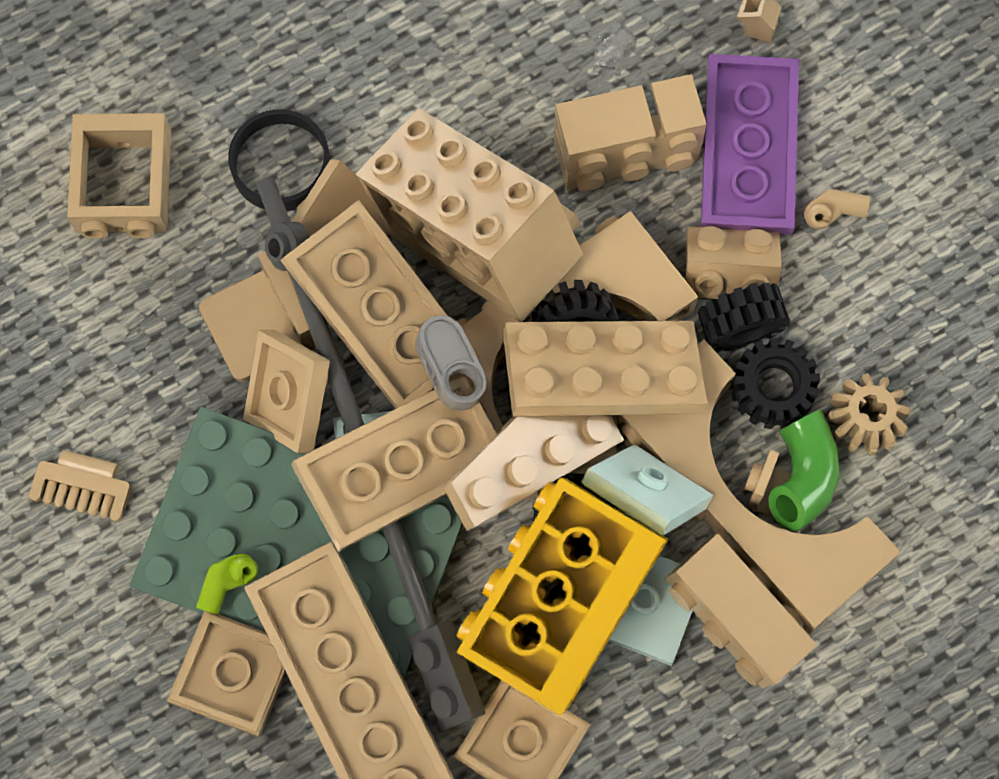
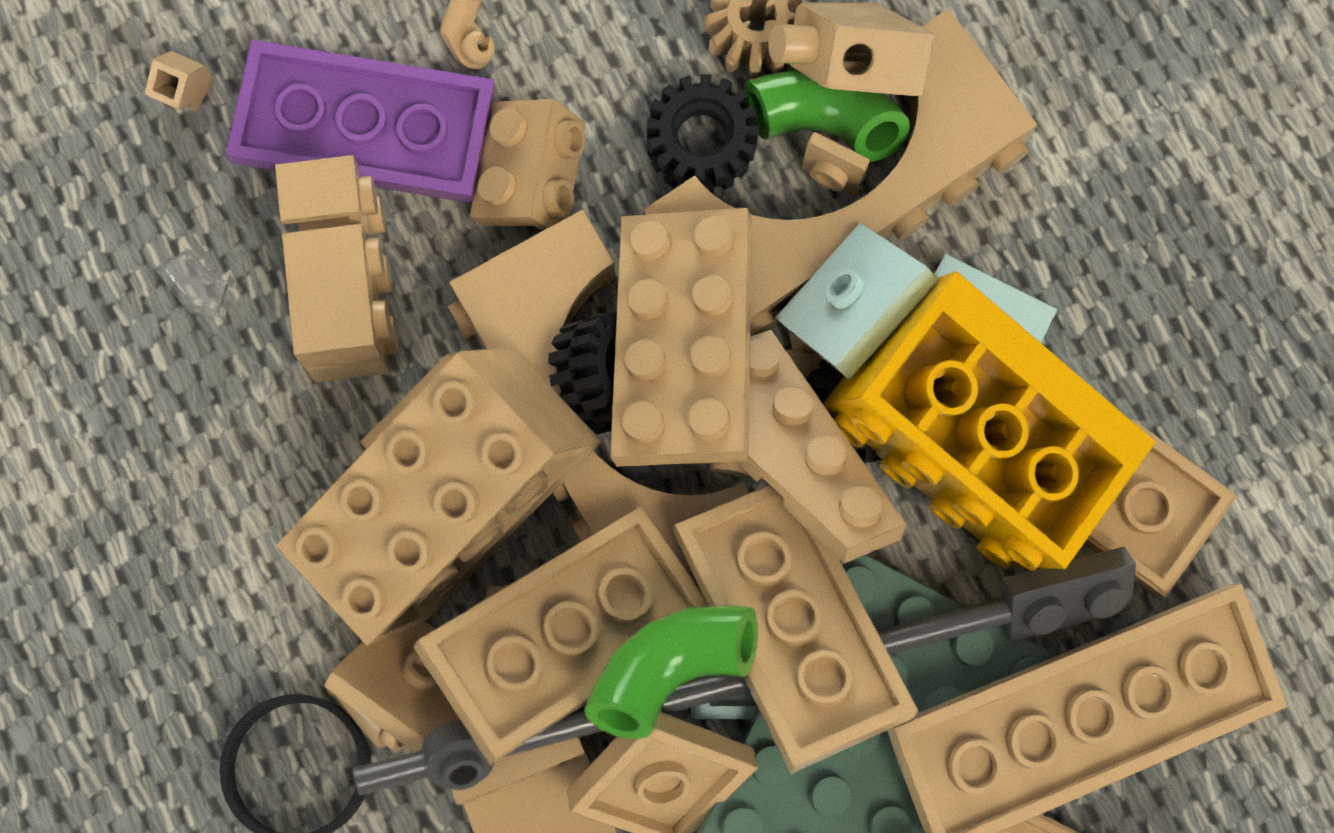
camera: 90 degrees left, 5 degrees up
(363, 367) = (666, 656): none -> bright green cylinder
(448, 352) = (648, 546): light grey piece -> none
(739, 613) = (1009, 212): tan brick -> none
(743, 316) = (617, 155): black tyre -> none
(852, 475) = (854, 48): none -> tan torso

